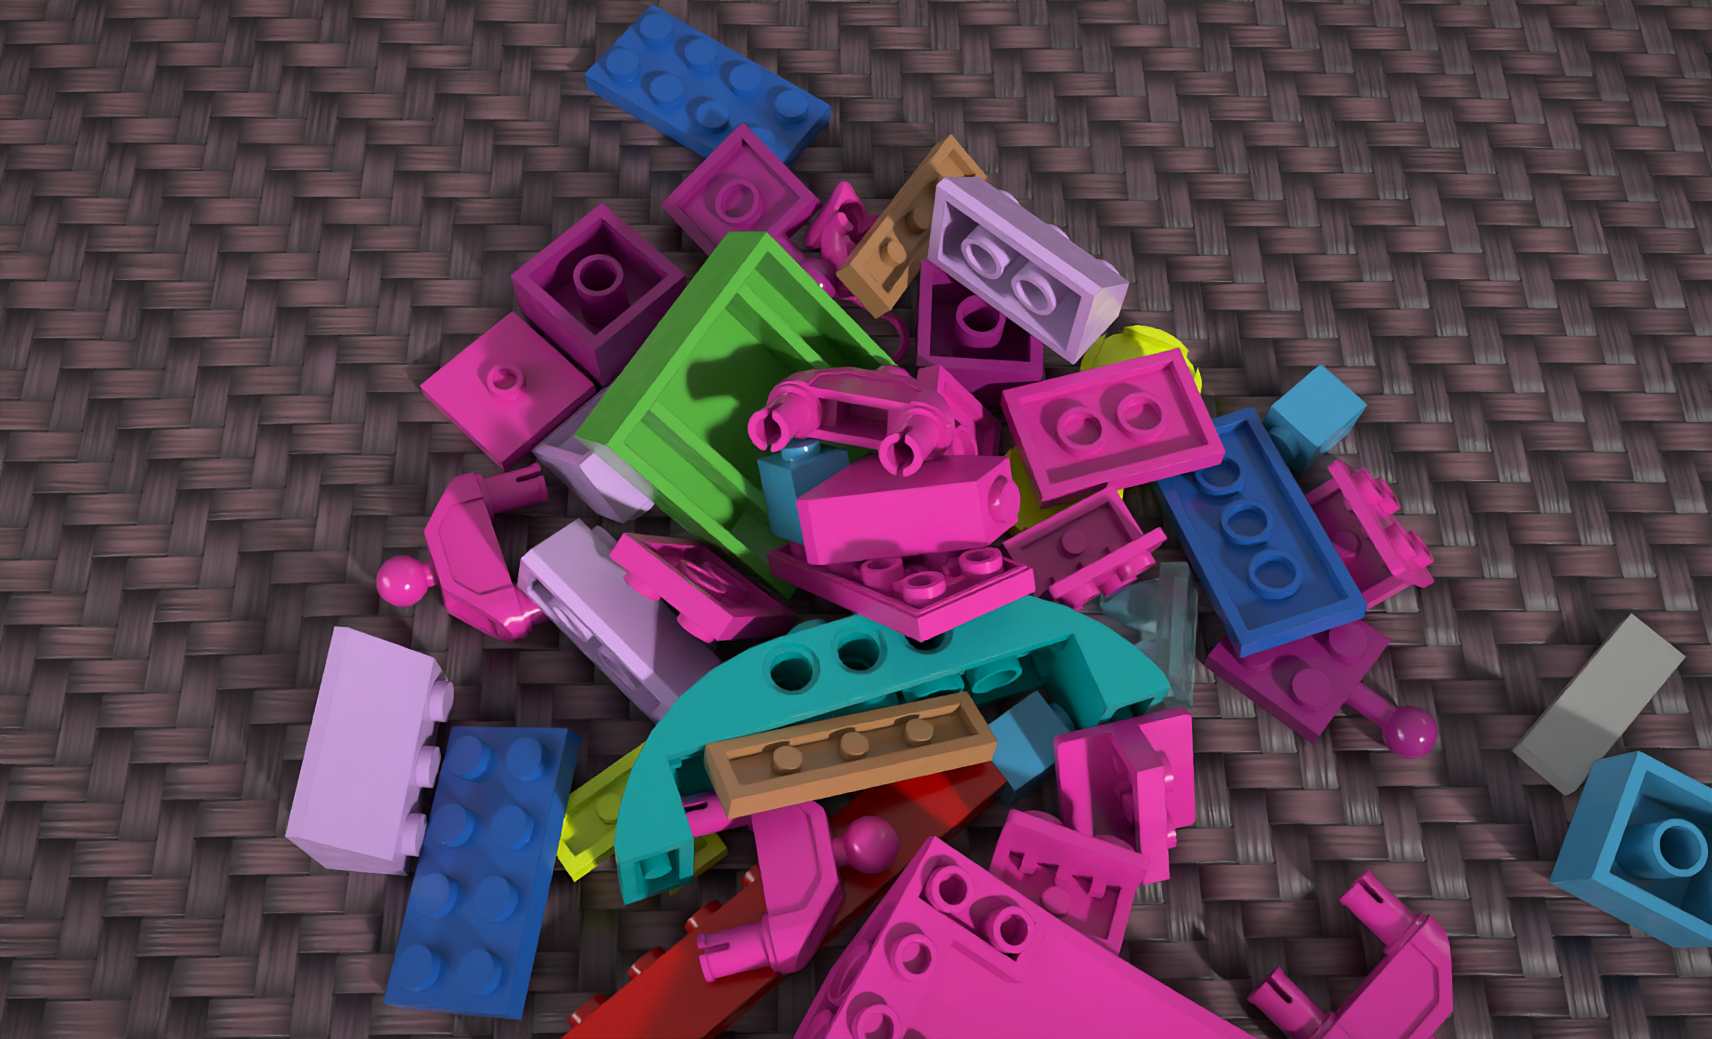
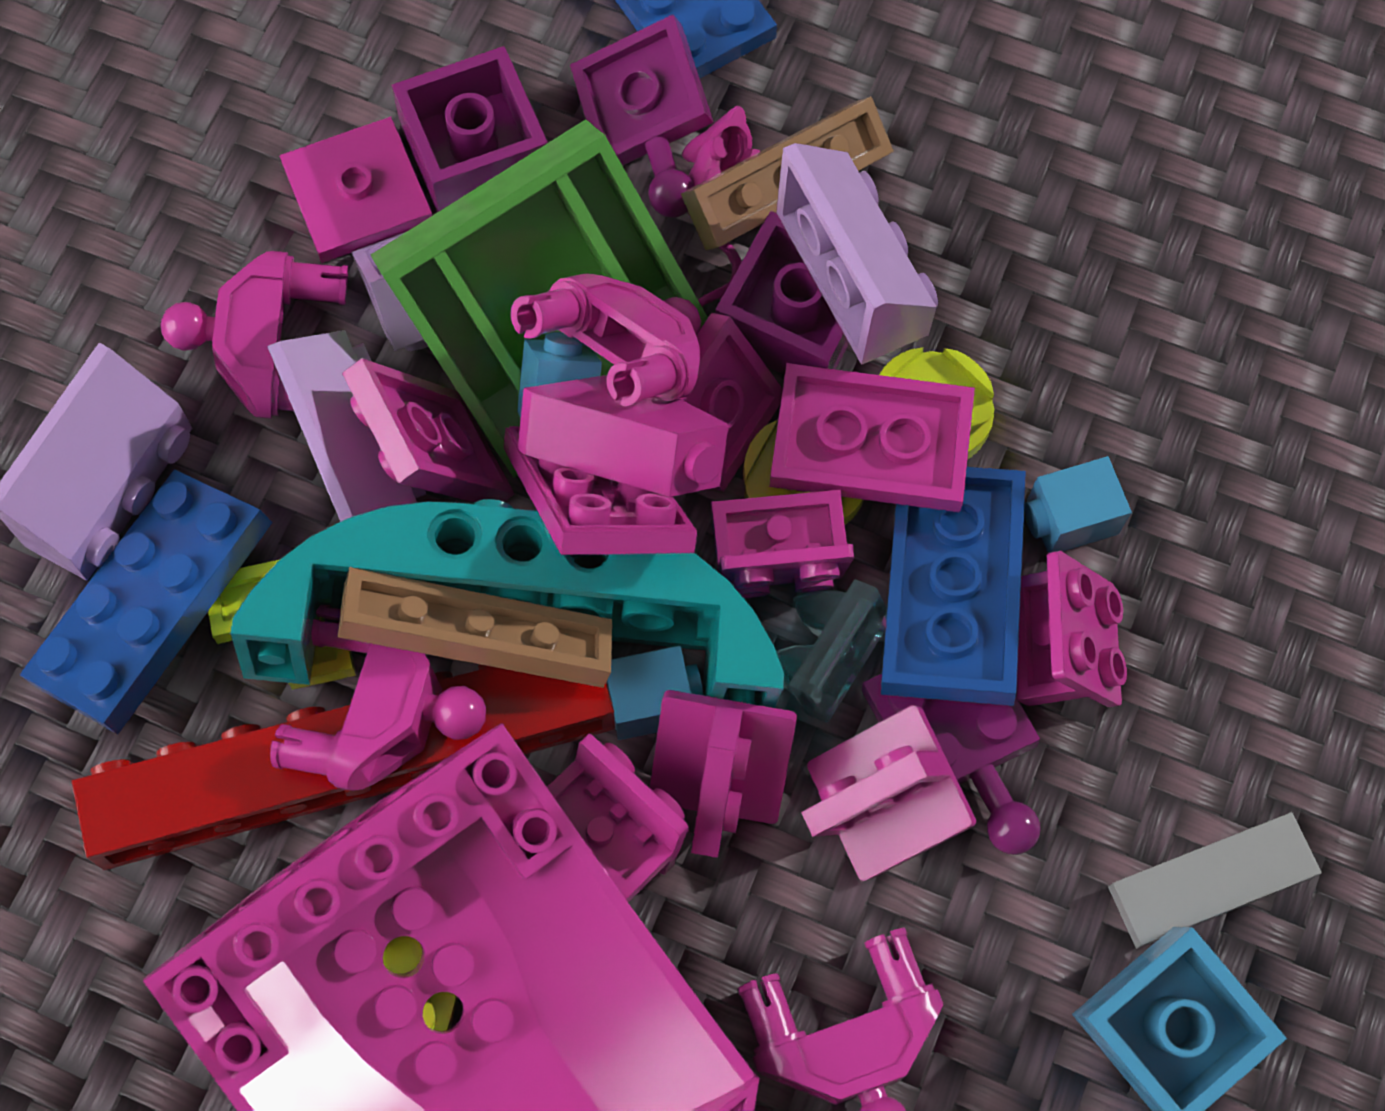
camera: 25 degrees right, 5 degrees up
(1291, 748) = (888, 794): none -> bracket

